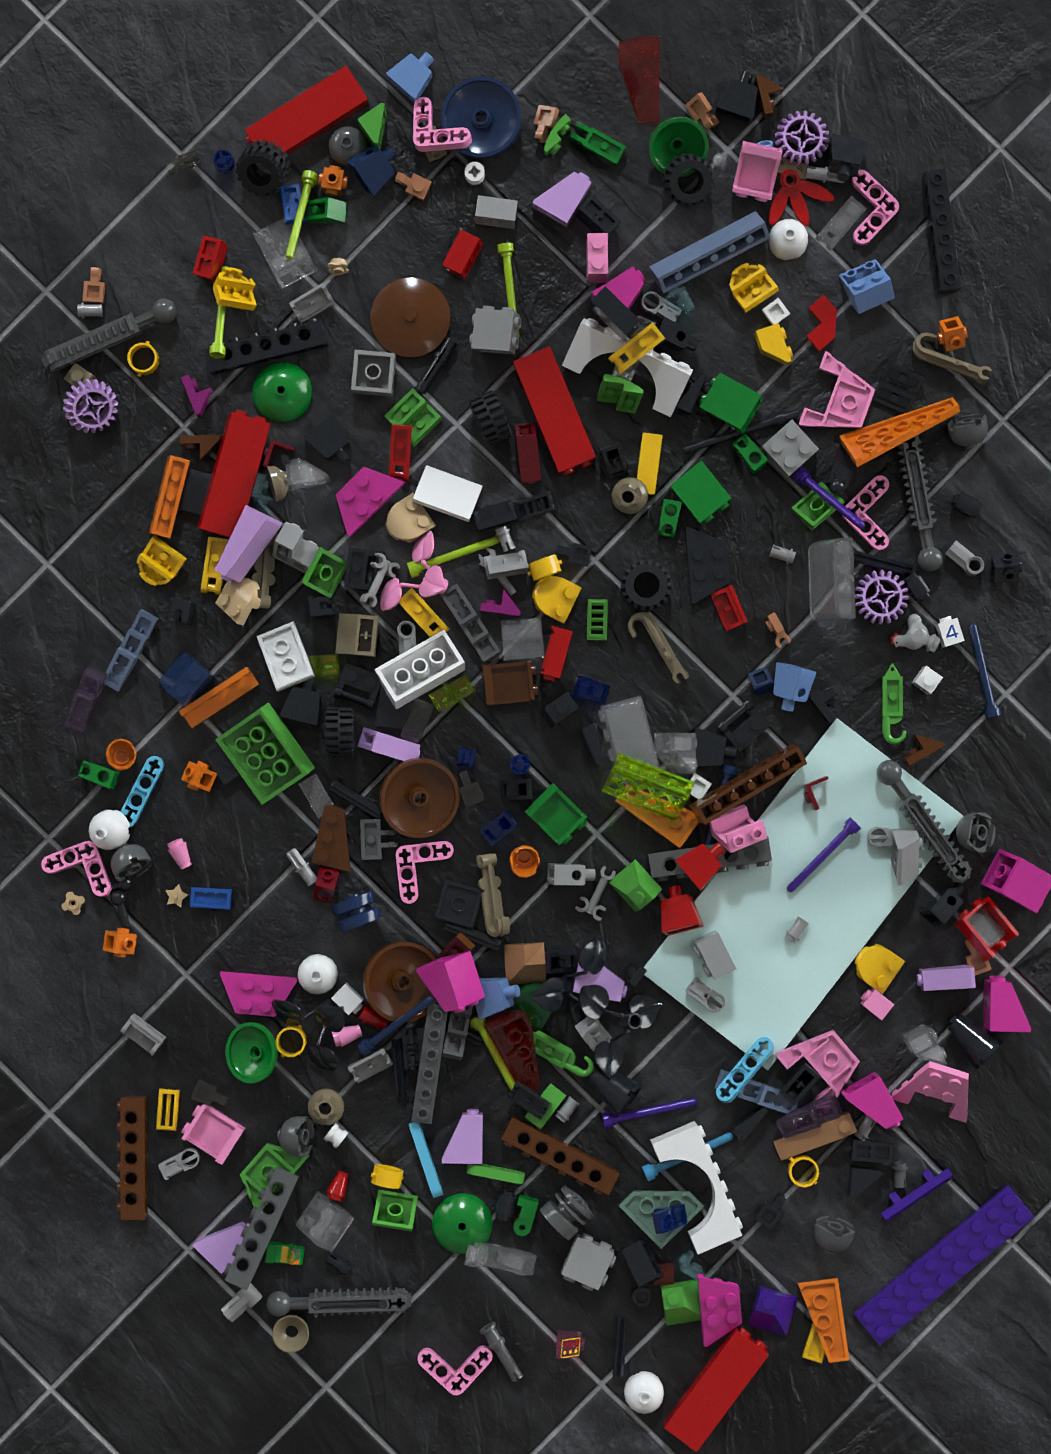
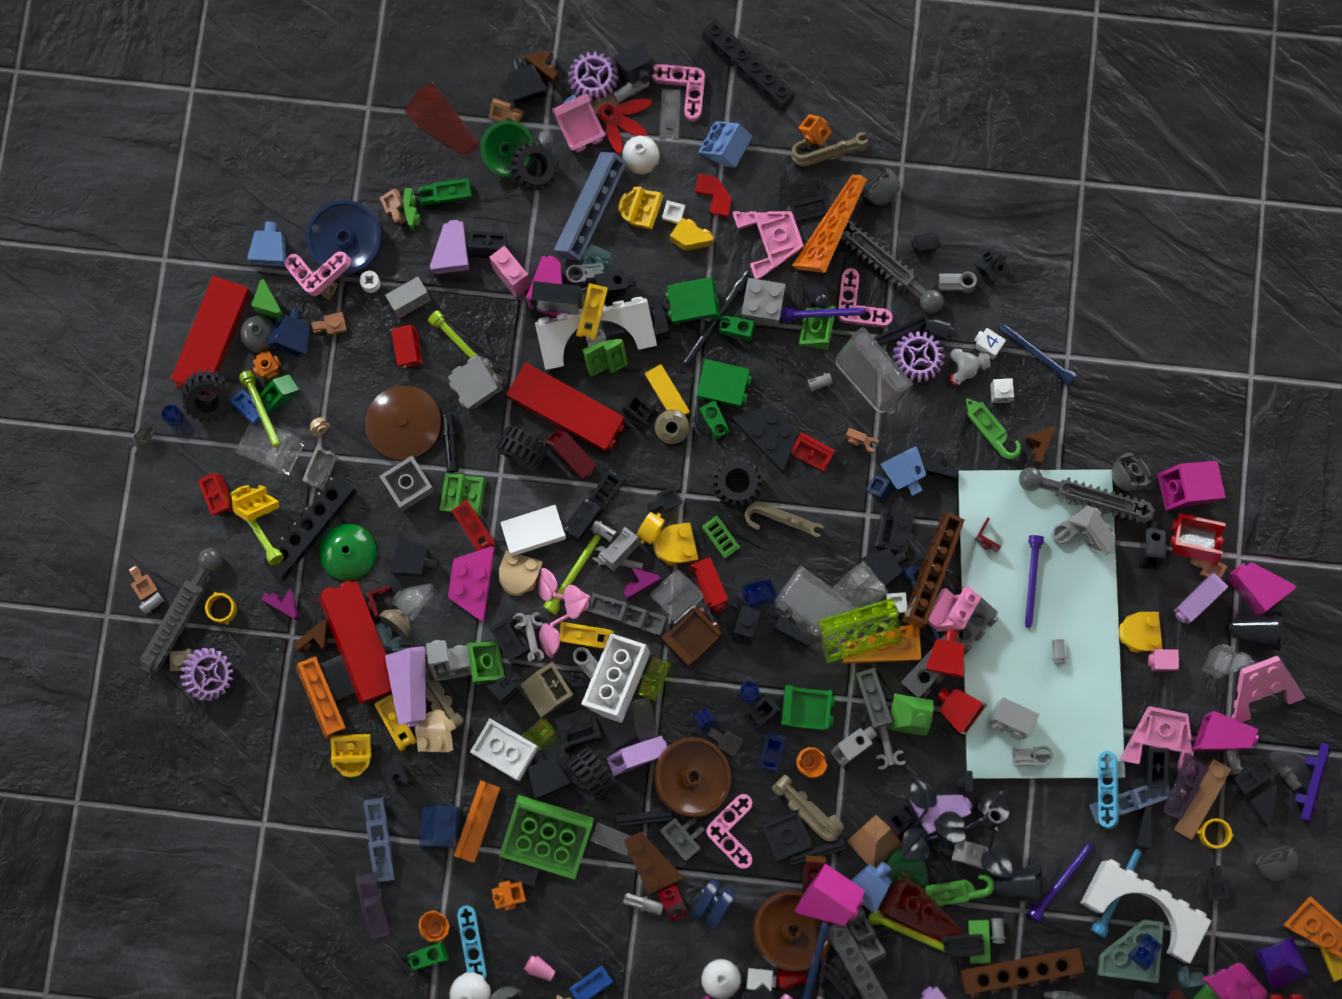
camera: 30 degrees left, 10 degrees down
(616, 849) = (874, 698): none -> dark grey plate

